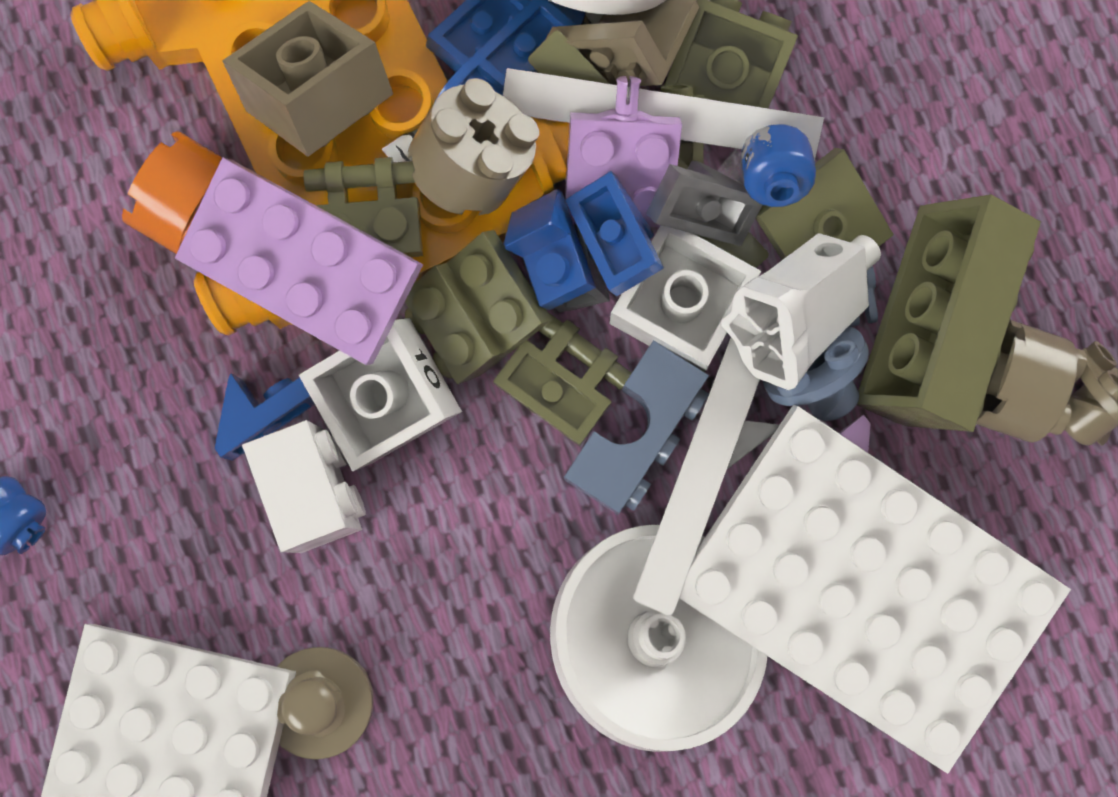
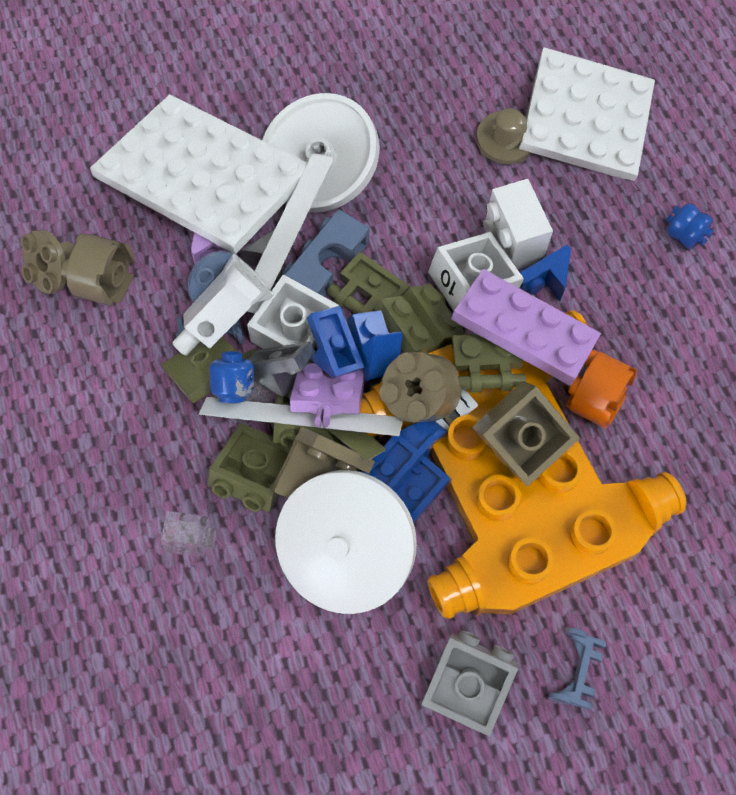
camera: 175 degrees right, 15 degrees down
(948, 313) = (137, 302): olive brick -> none

